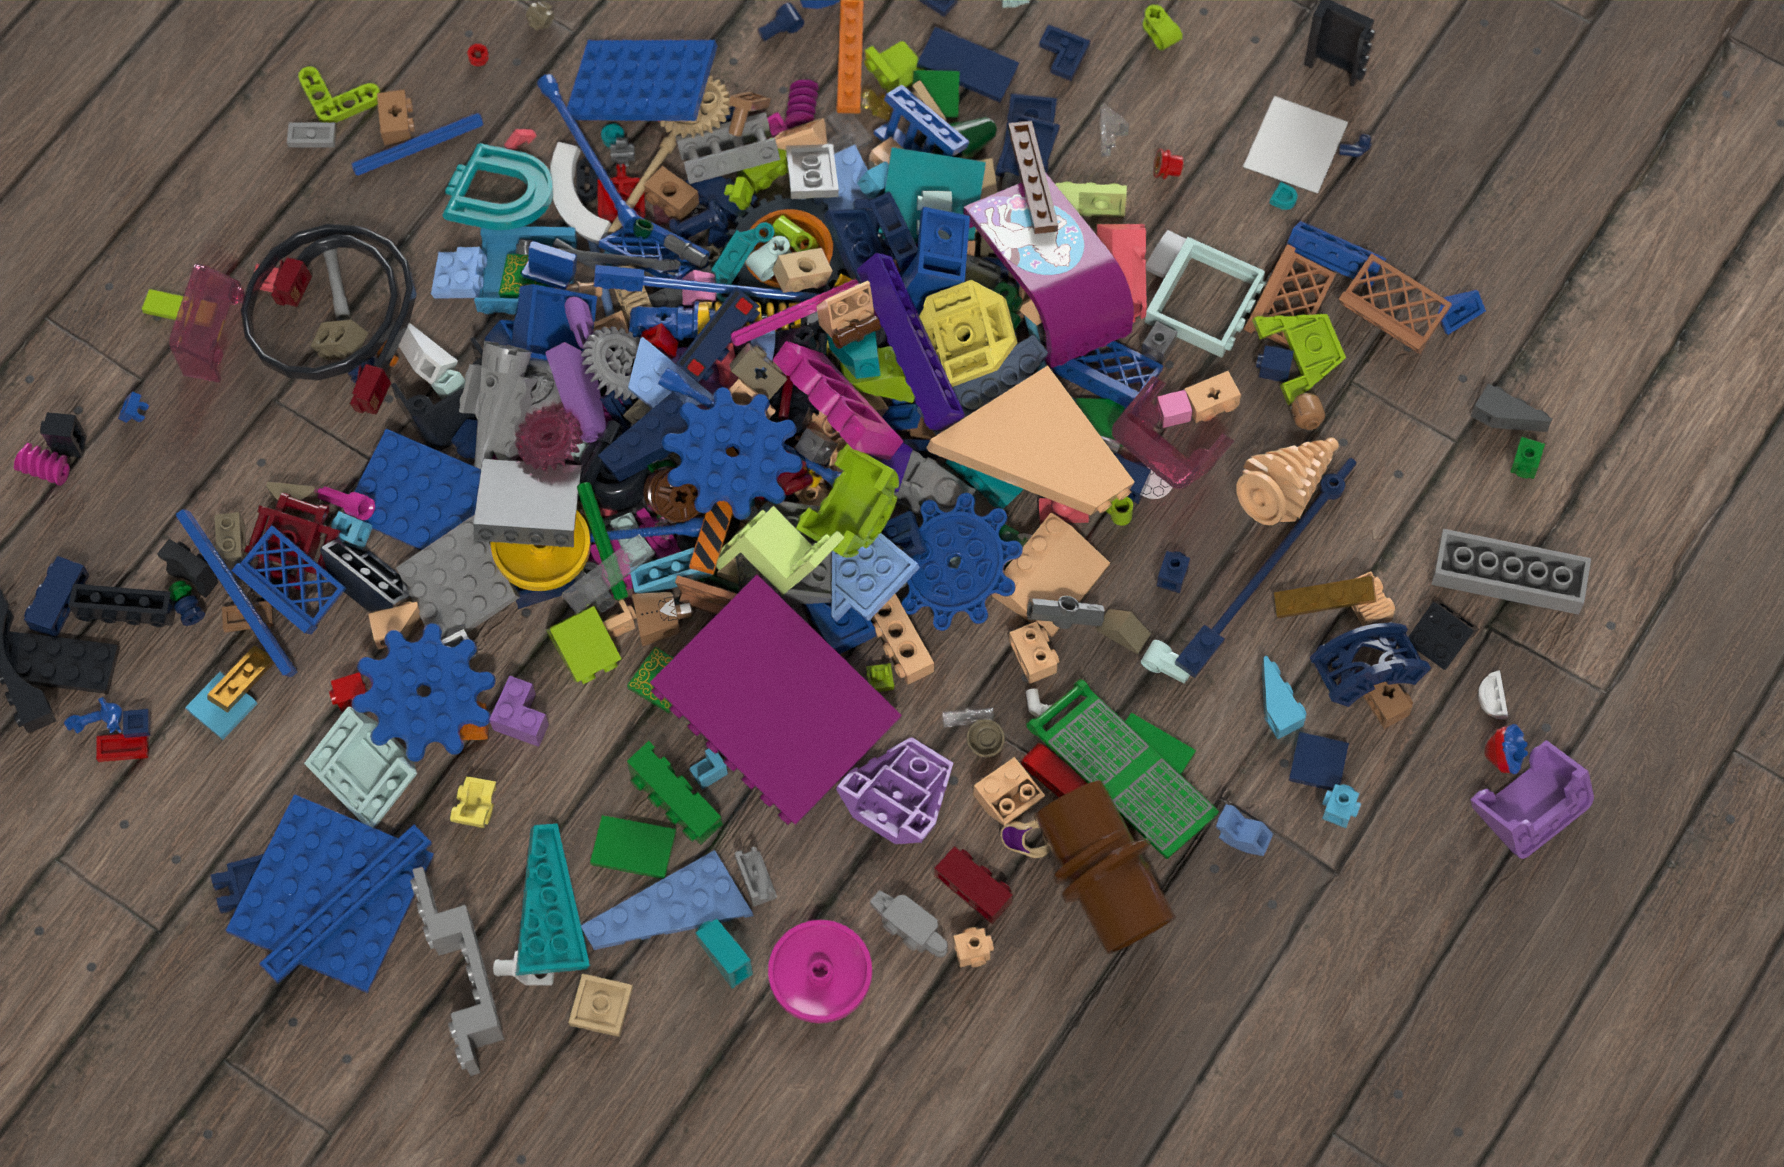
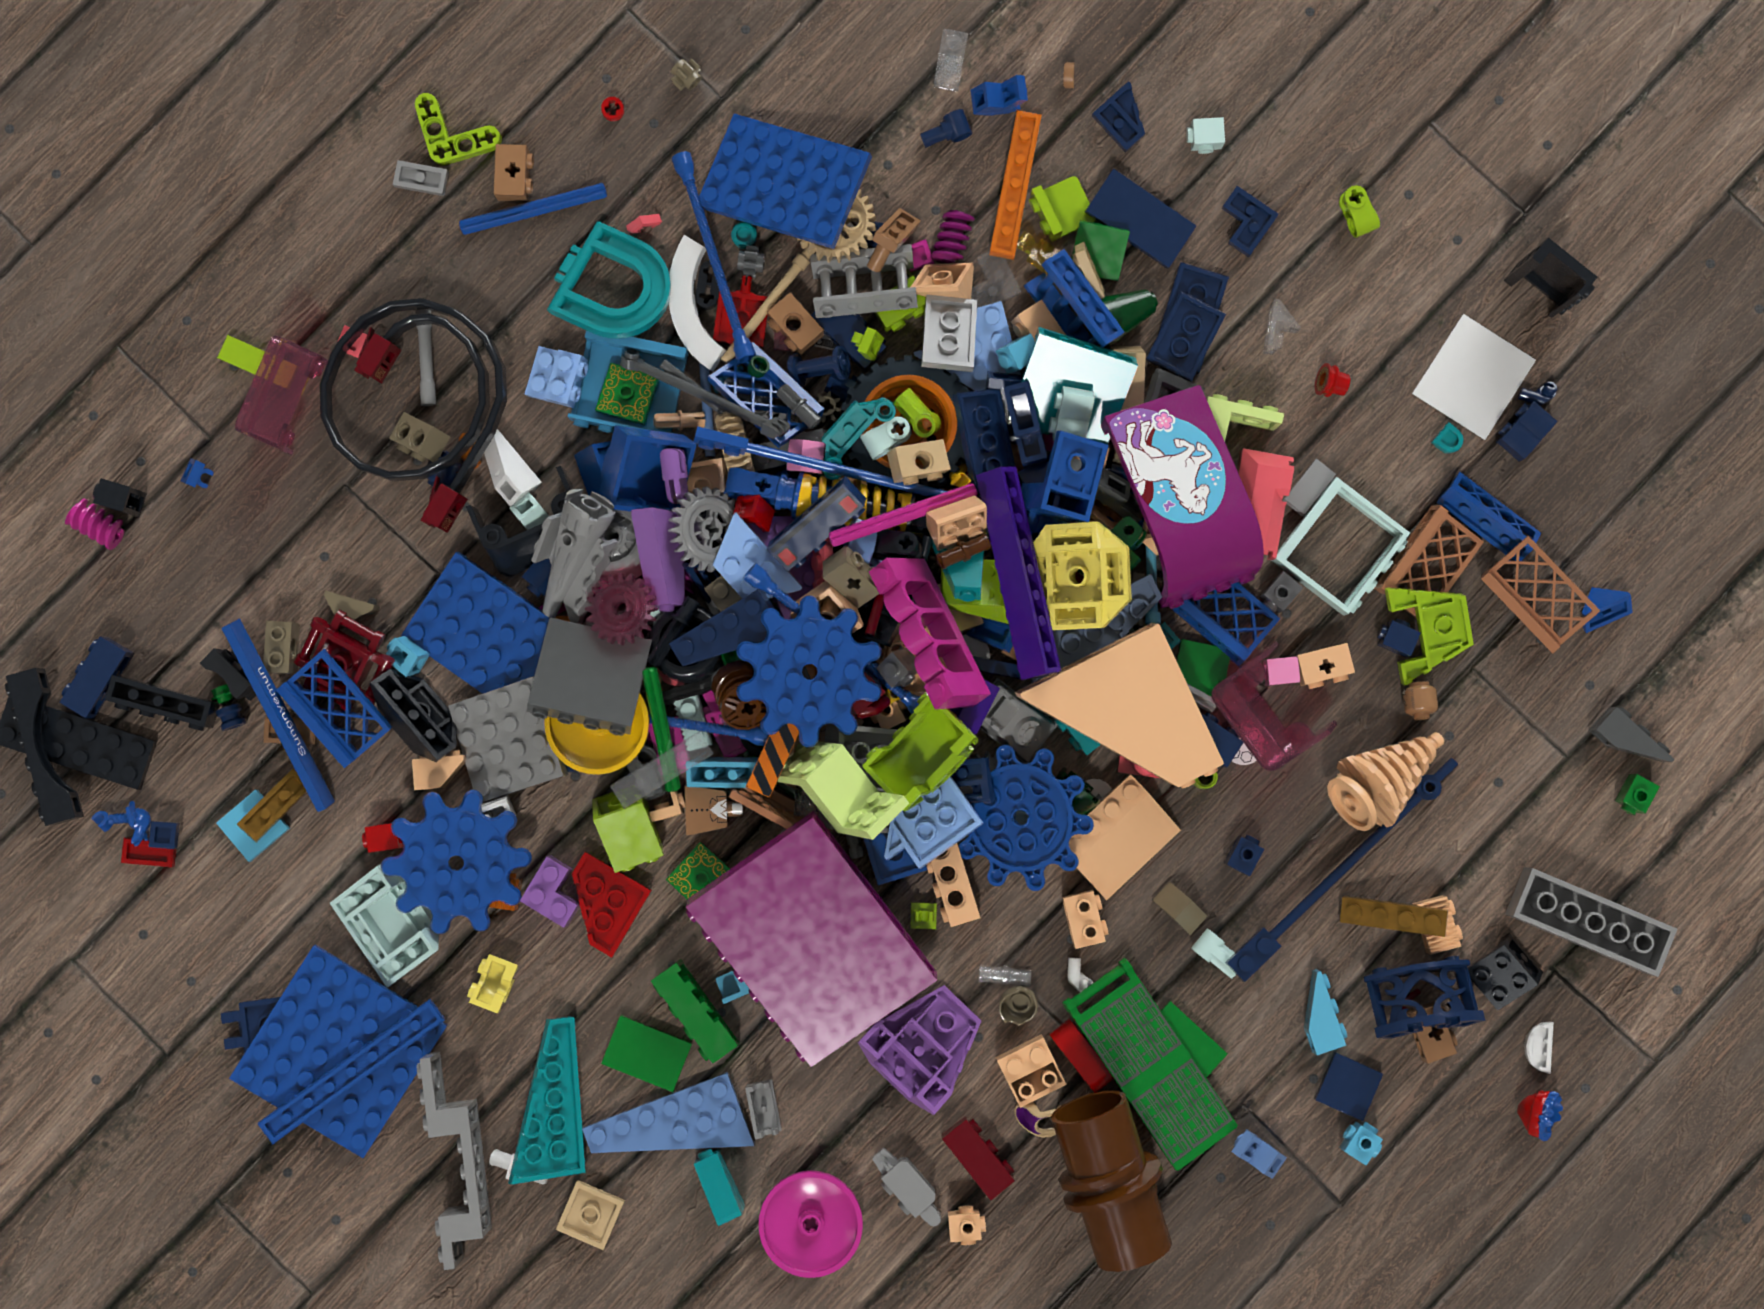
camera: 10 degrees right, 20 degrees up
(353, 504) = (412, 635): dark pink piece -> none
(550, 265) = (652, 393): blue panel -> none
(574, 714) = (607, 902): none -> red plate
(1033, 177) = (1185, 394): plate -> none
(1065, 612) = (1137, 887): dark grey piece -> none
(1351, 176) = (1526, 431): none -> dark blue brick
(1537, 802) = (1556, 1170): medium lavender windscreen -> none

